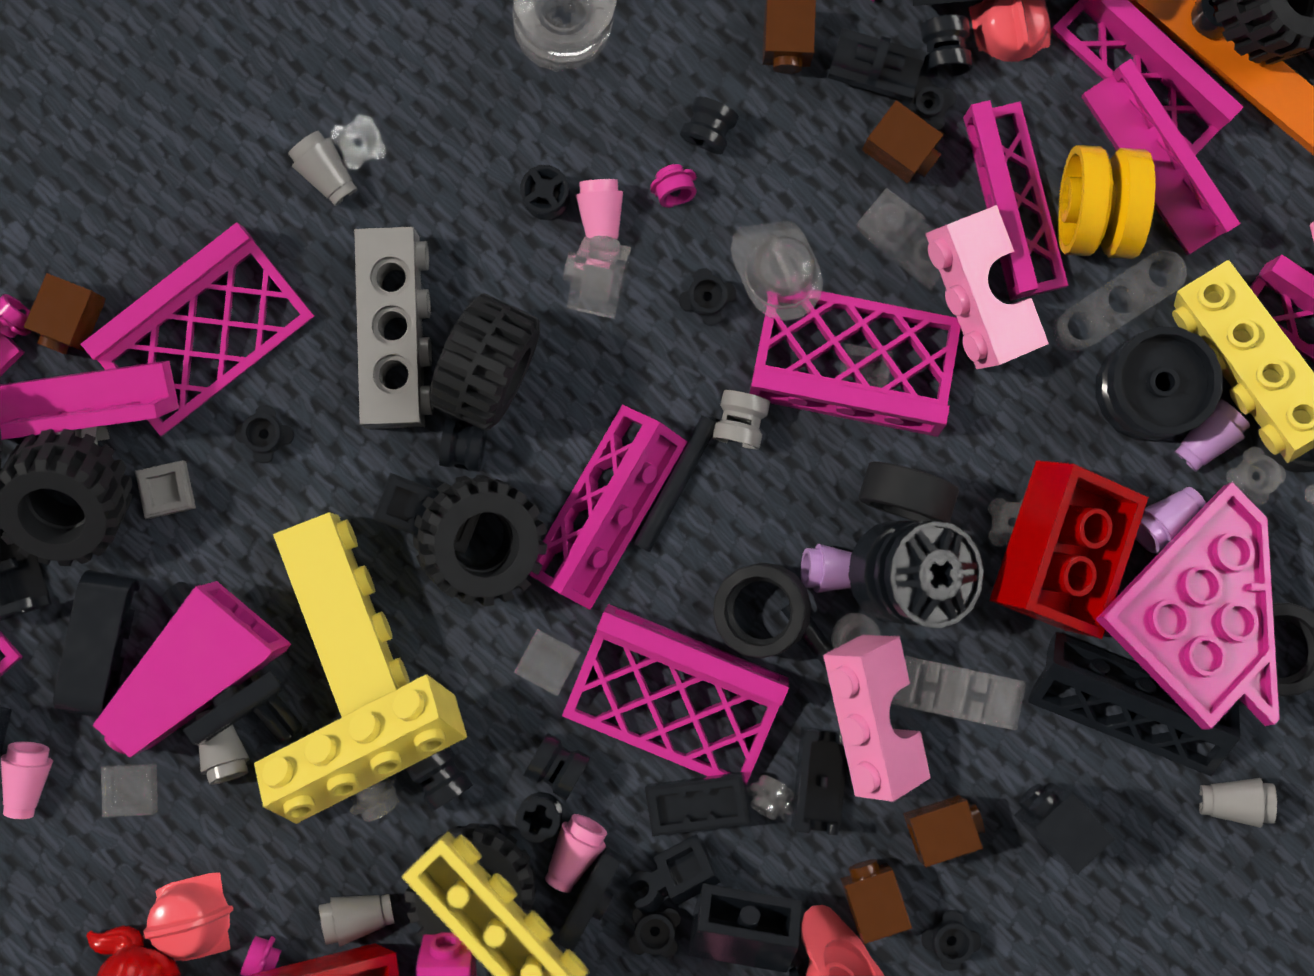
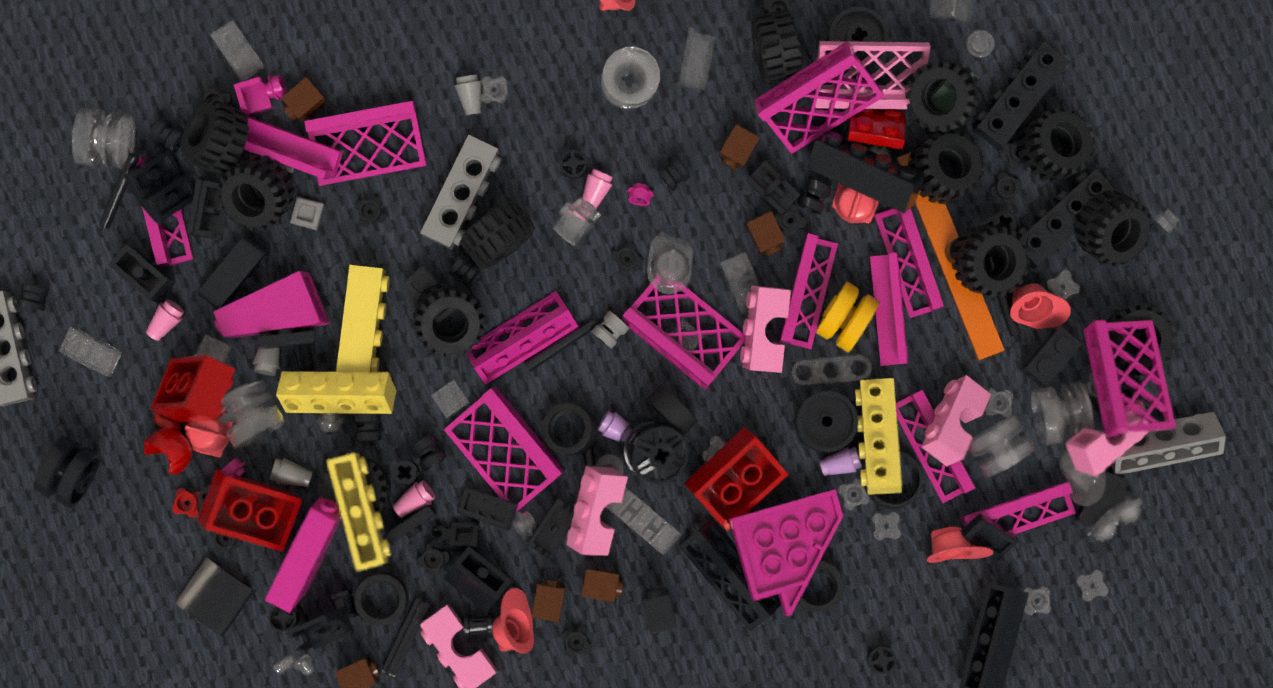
camera: 30 degrees right, 0 degrees up
(122, 870) = (193, 389): none -> red brick
(235, 860) = (248, 413): none -> clear wheel
(1167, 517) = (795, 490): lavender cone -> none
(1240, 801) = (755, 649): light grey cone -> none

